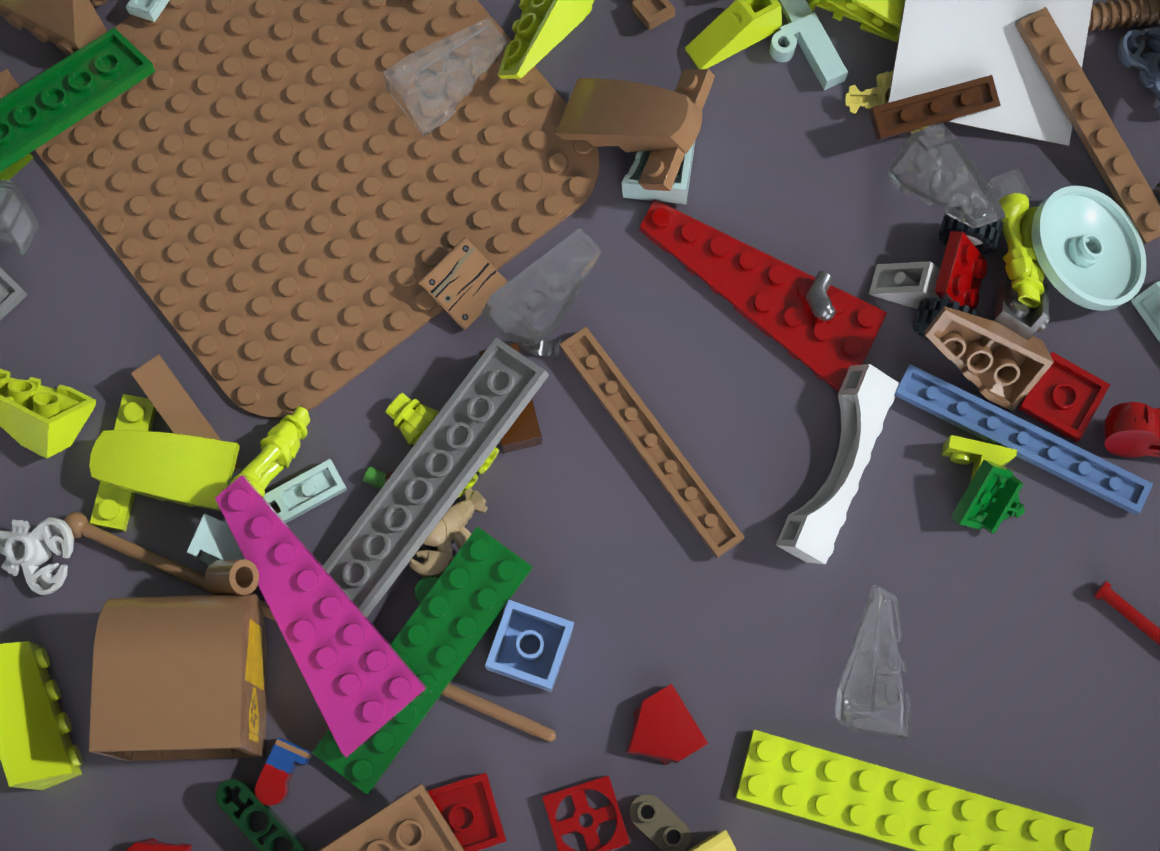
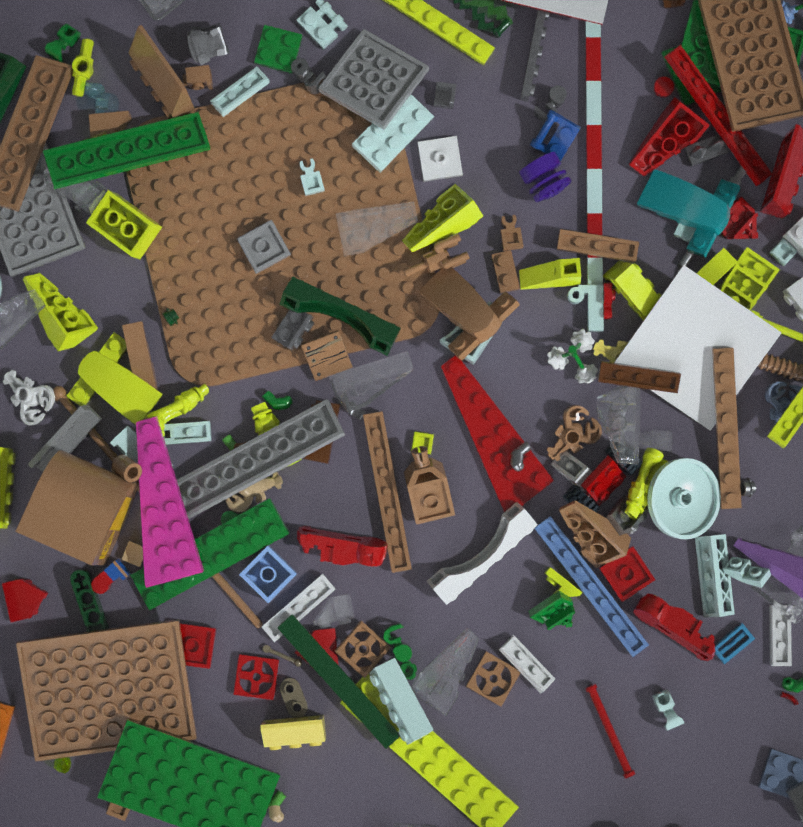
camera: 30 degrees right, 10 degrees up
(70, 228) = (124, 224): none -> neon yellow brick
(118, 575) = (68, 436): none -> light grey fence
(201, 331) = (170, 316): none -> dark green plate
(297, 171) = (263, 246): none -> light grey plate
(303, 717) = (133, 554): none -> tan tile
(324, 50) = (311, 180): none -> light aqua plate
(395, 265) = (292, 329): none -> flat silver bracket
(398, 212) = (303, 297): none -> dark green arch
(423, 387) = (278, 403): none -> green arm
(564, 72) = (439, 257): none -> medium nougat plant
(582, 768) = (267, 649): none -> dark tan hinge
(600, 679) = (300, 605): none -> white plate
(626, 553) = (343, 548): none -> red piece
(659, 653) = (336, 609): none -> clear slope
(664, 56) = (505, 271): none -> medium nougat plate
(667, 348) = (422, 439): none -> neon yellow tile
(710, 405) = (428, 488): none -> medium nougat plate
(721, 761) = (339, 681): none -> dark green tile
(724, 721) = (384, 648): none -> medium nougat piece
(789, 670) = (401, 650): none -> green leg
(823, 697) = (412, 669): none -> green plate
(825, 103) = (558, 358): none -> white plant
(831, 746) = (400, 701): none -> light aqua brick
(832, 25) = (608, 296): none -> red plate
(878, 232) = (573, 432): none -> medium nougat animal
(924, 671) = (488, 657): none -> medium nougat piece
(989, 599) = (527, 664): none -> white tile

